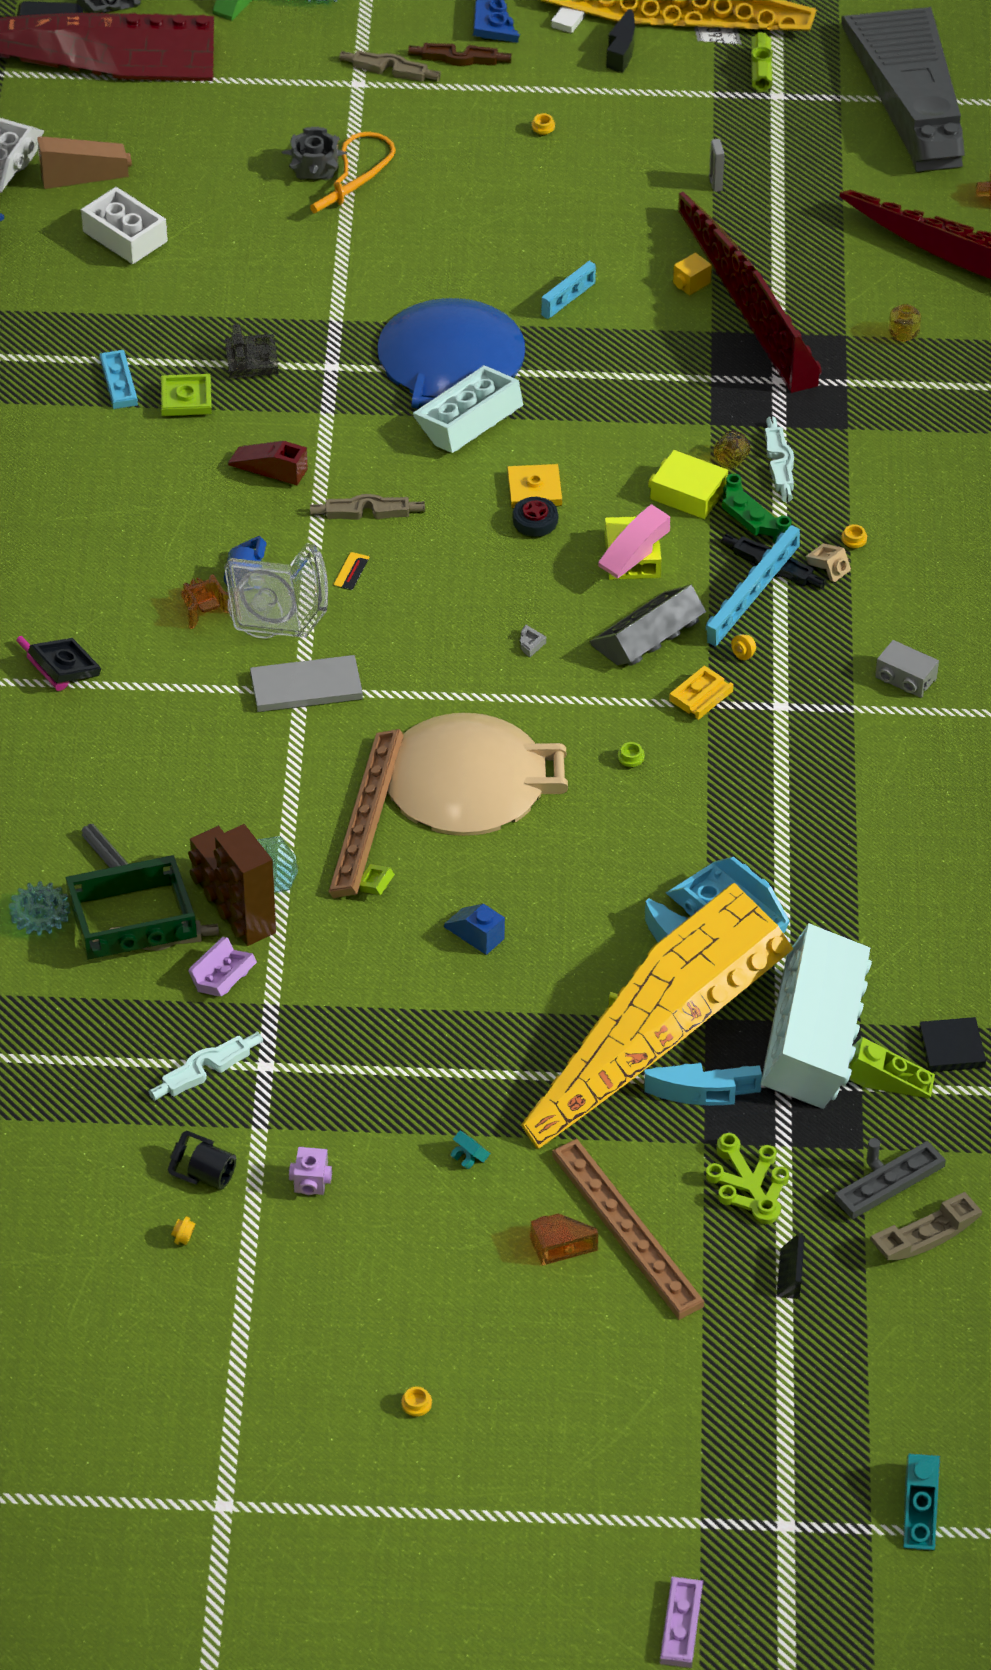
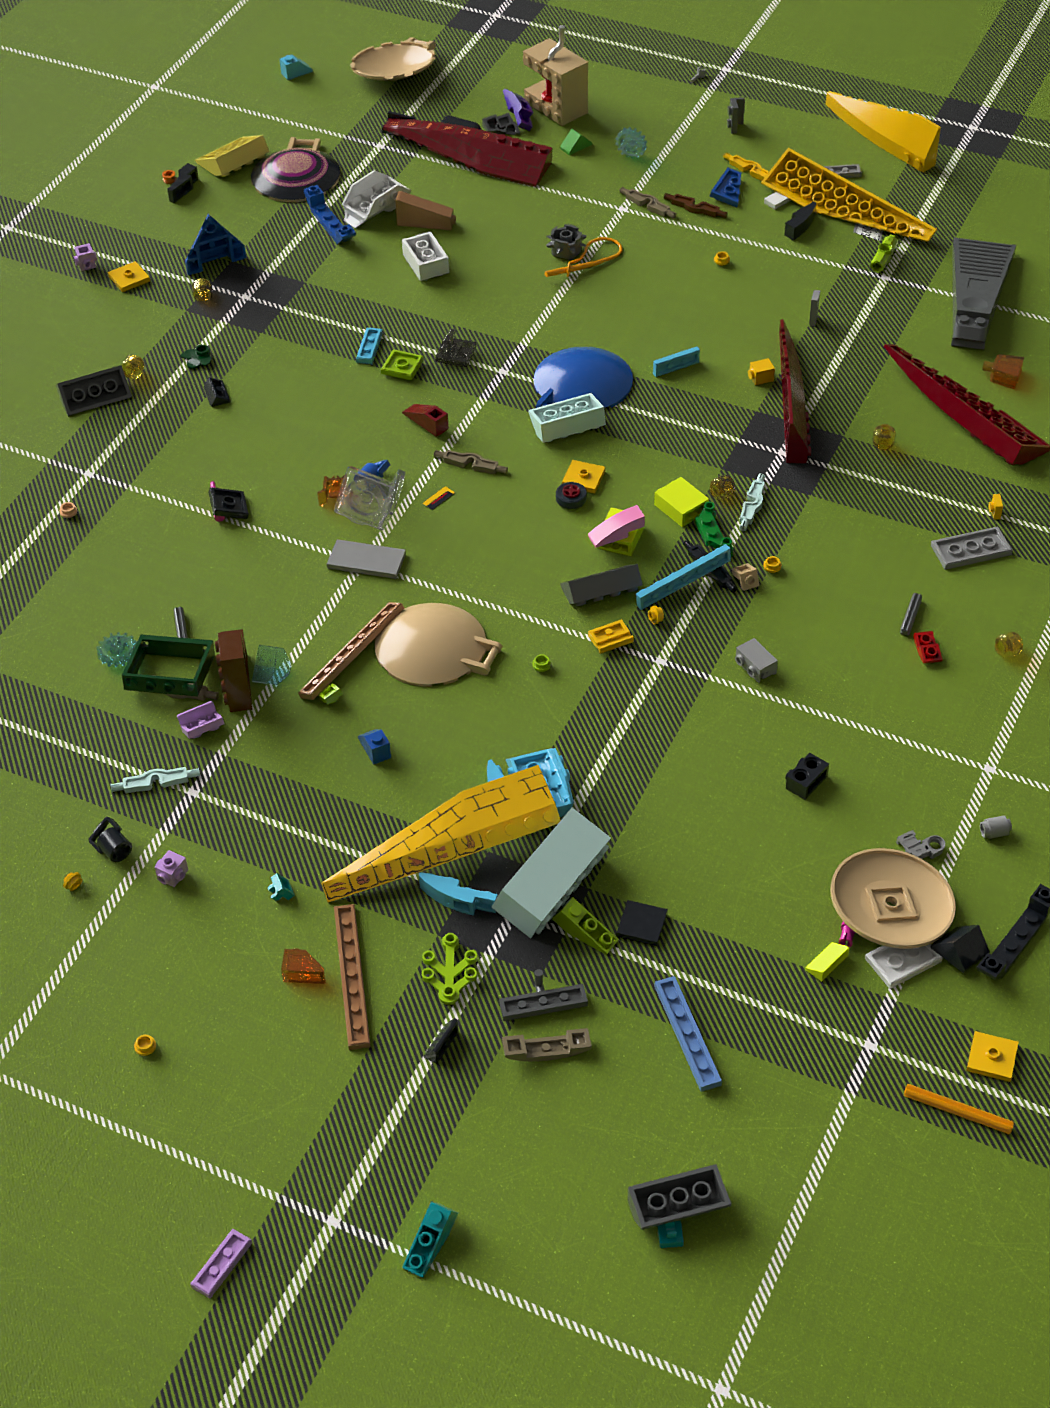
camera: 25 degrees right, 0 degrees up
(531, 640) = (523, 572): light grey tile -> none

